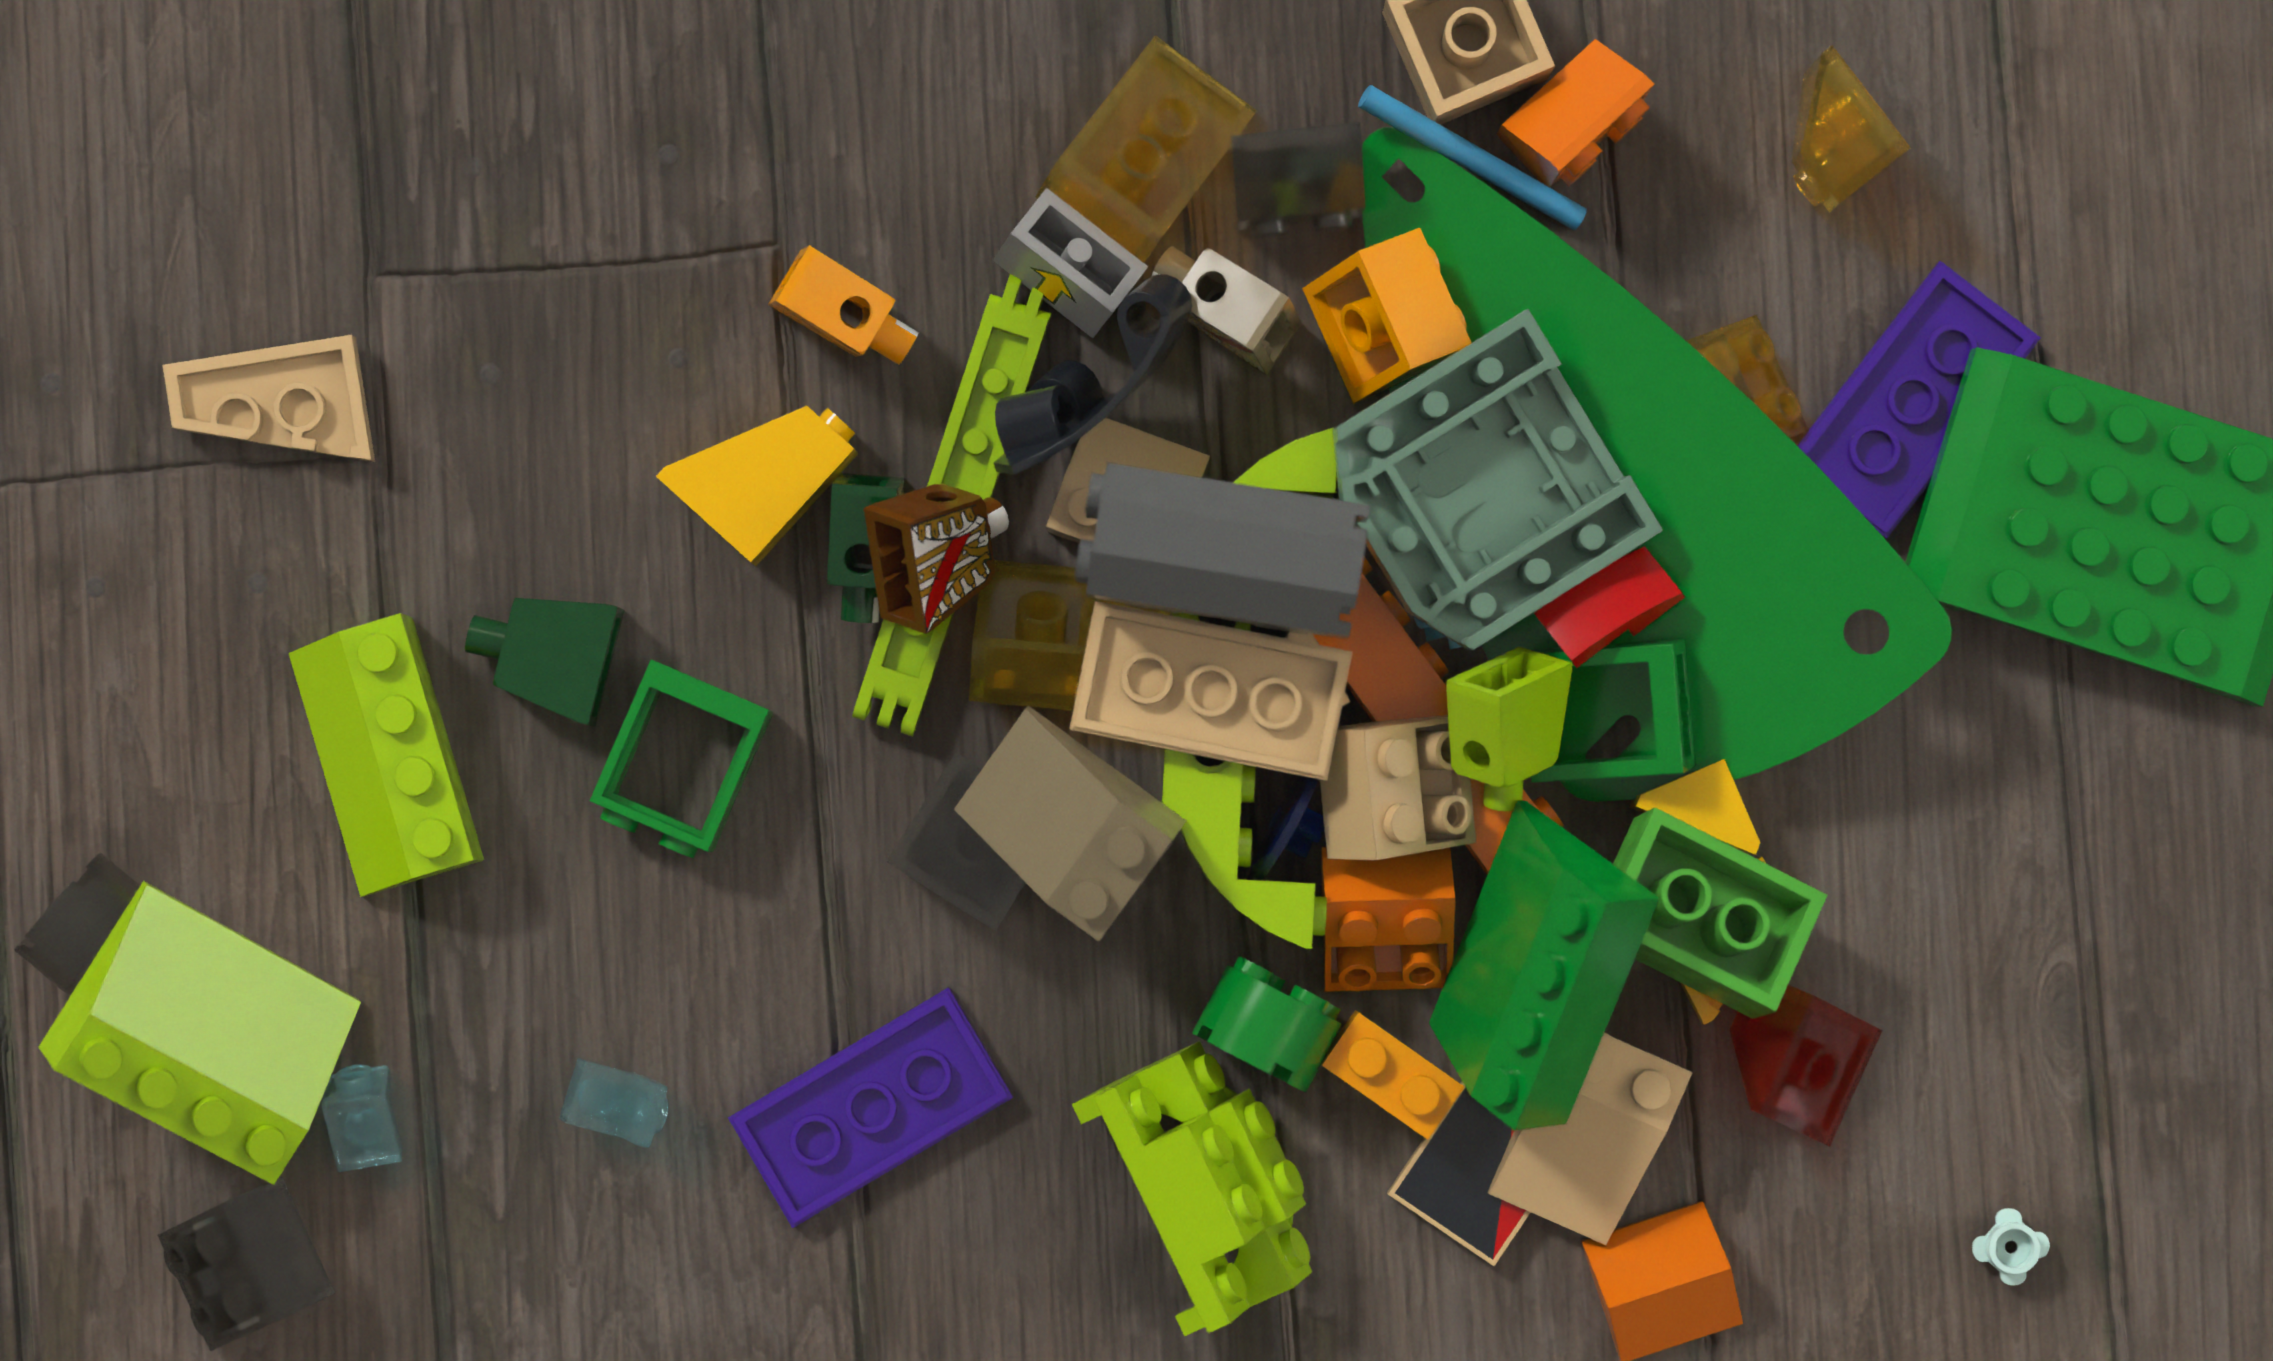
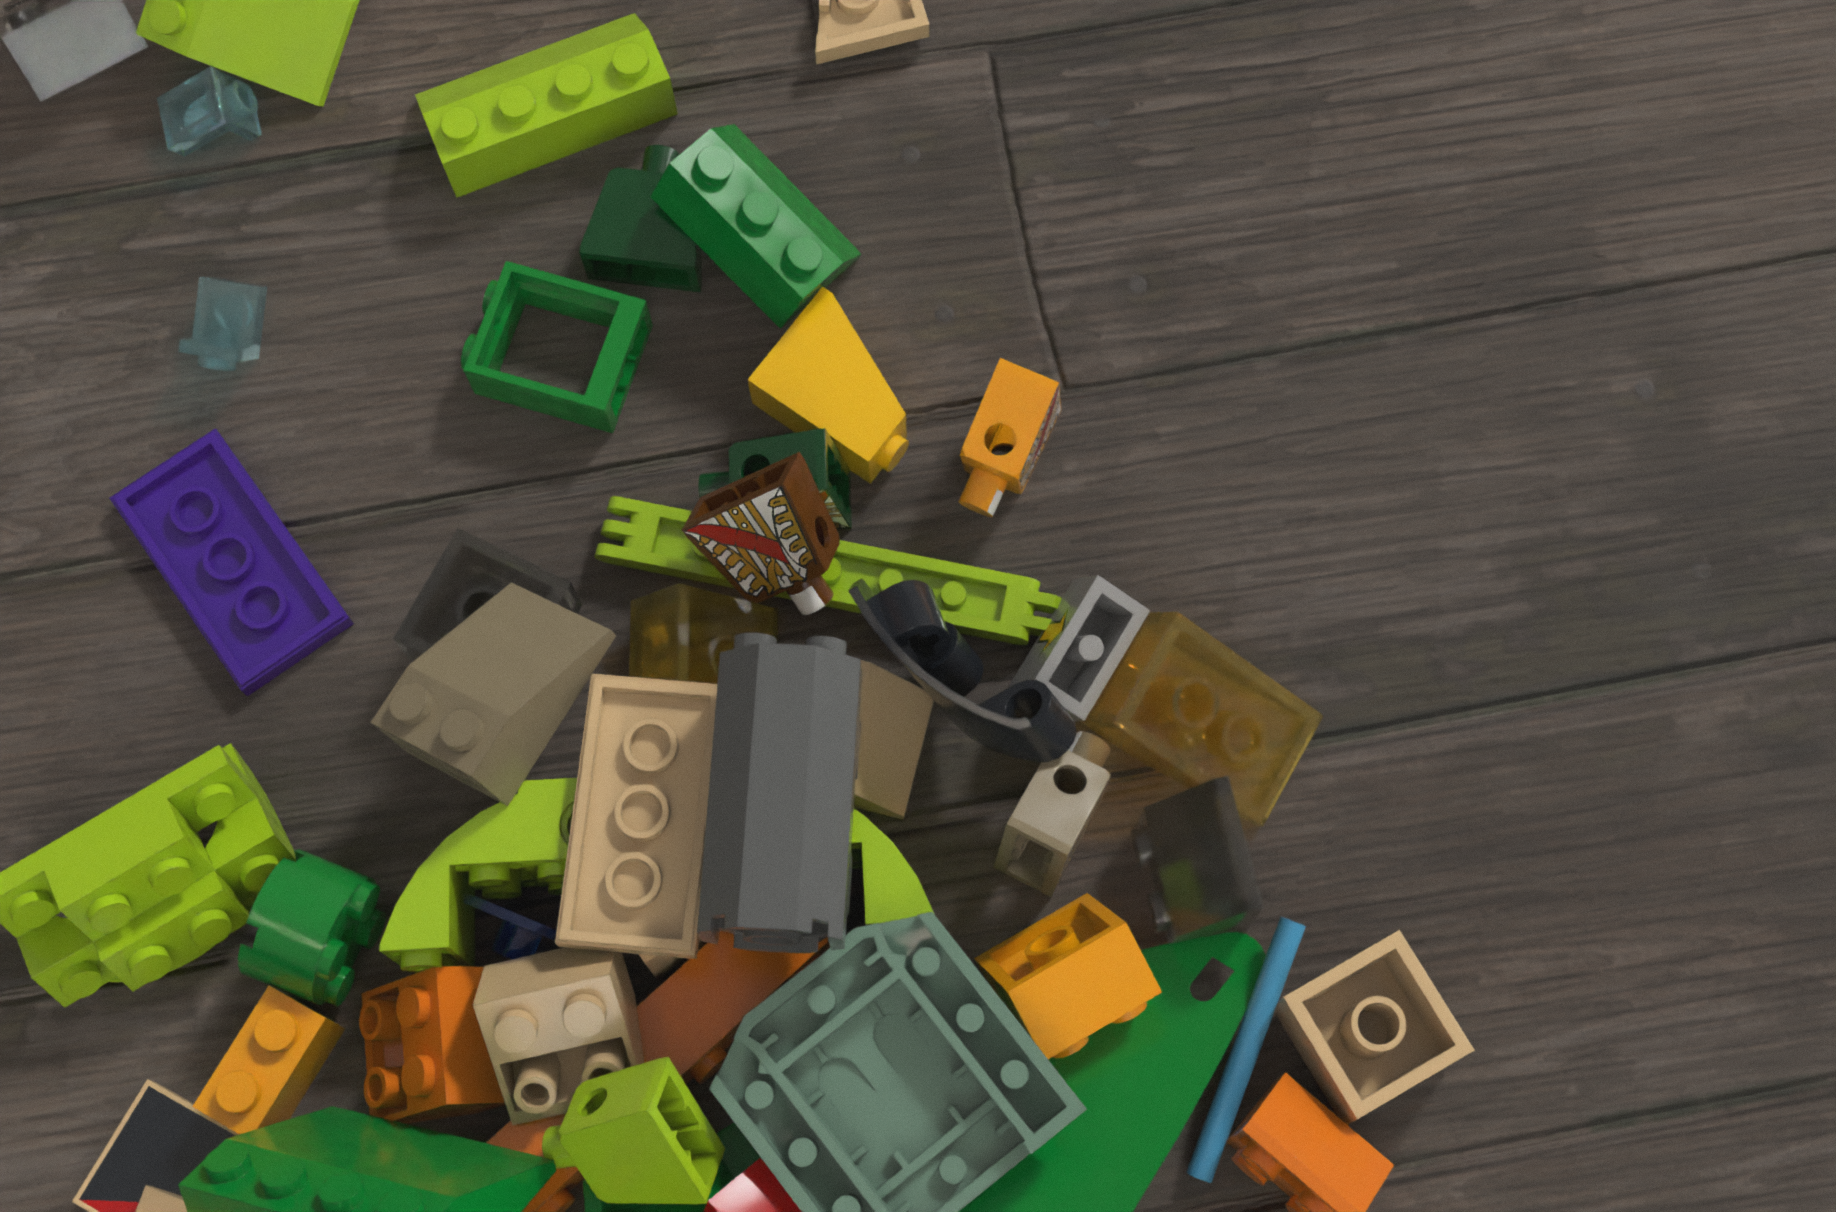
camera: 85 degrees right, 15 degrees down
(576, 536) = (753, 222): none -> green slope

